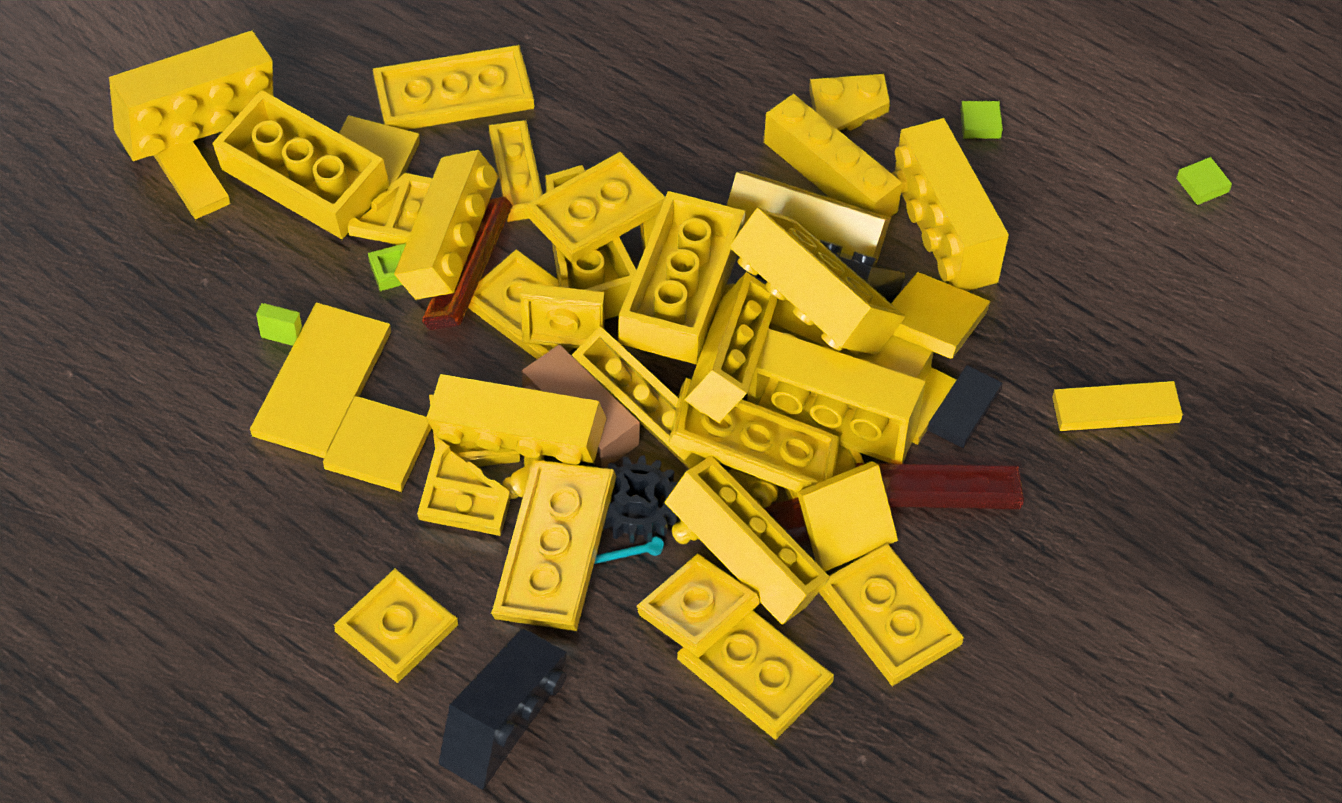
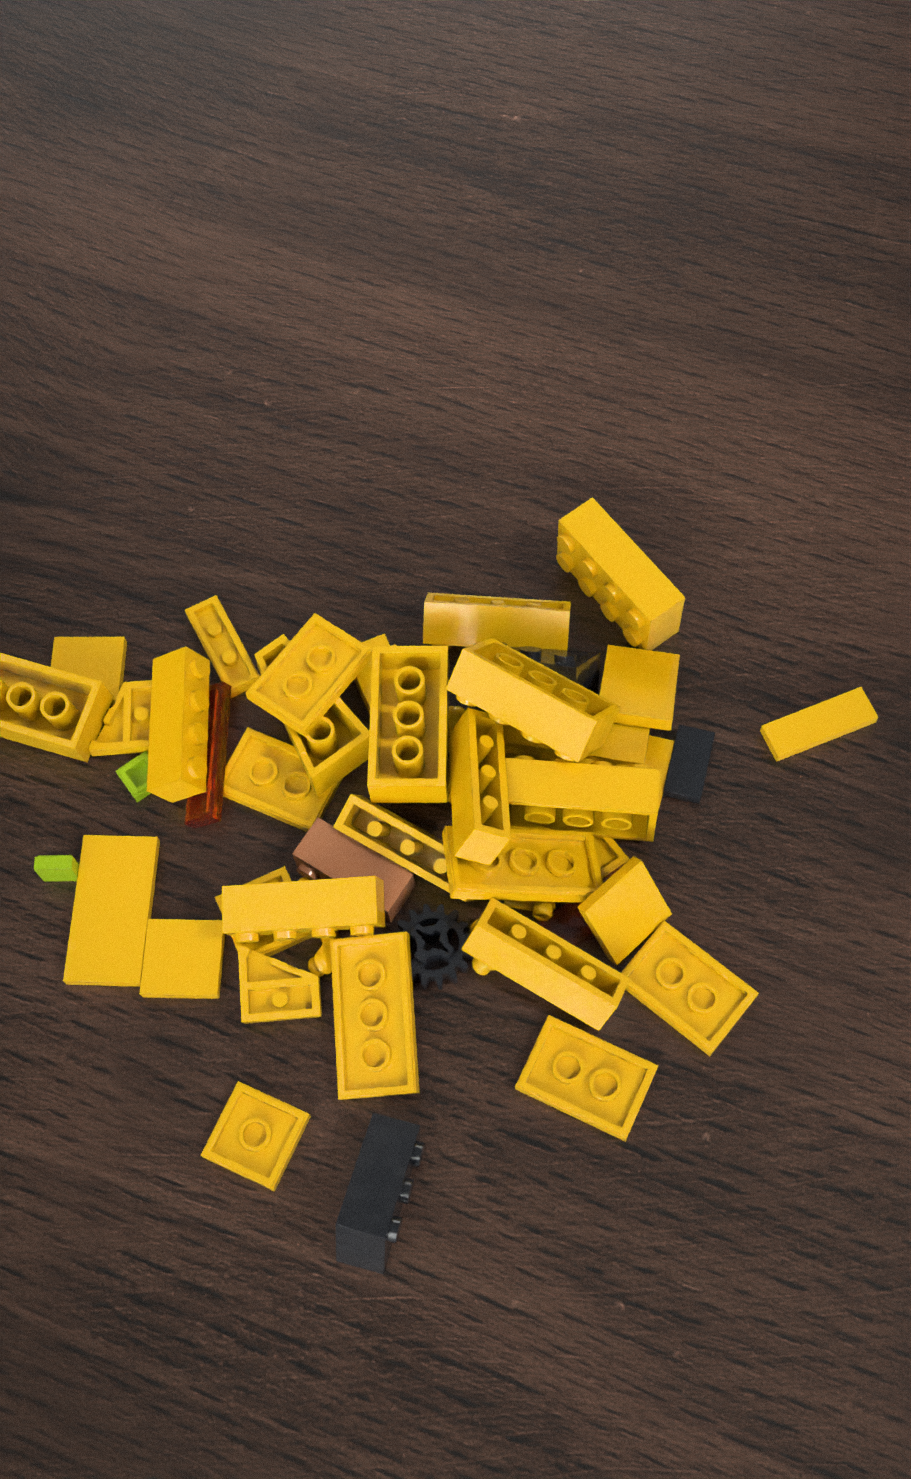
camera: 10 degrees left, 10 degrees up
(453, 88) = (140, 581): yellow tile -> none
(560, 314) = (312, 792): yellow tile -> none
(653, 548) = (461, 986): teal hinge -> none
(698, 605) = (519, 1034): yellow tile -> none
(830, 158) = (499, 558): yellow brick -> none
(850, 99) = (494, 494): yellow wing -> none
(951, 486) = (699, 847): clear red tile -> none
(981, 119) = (616, 477): lime tile -> none
(1204, 180) = (824, 482): lime tile -> none

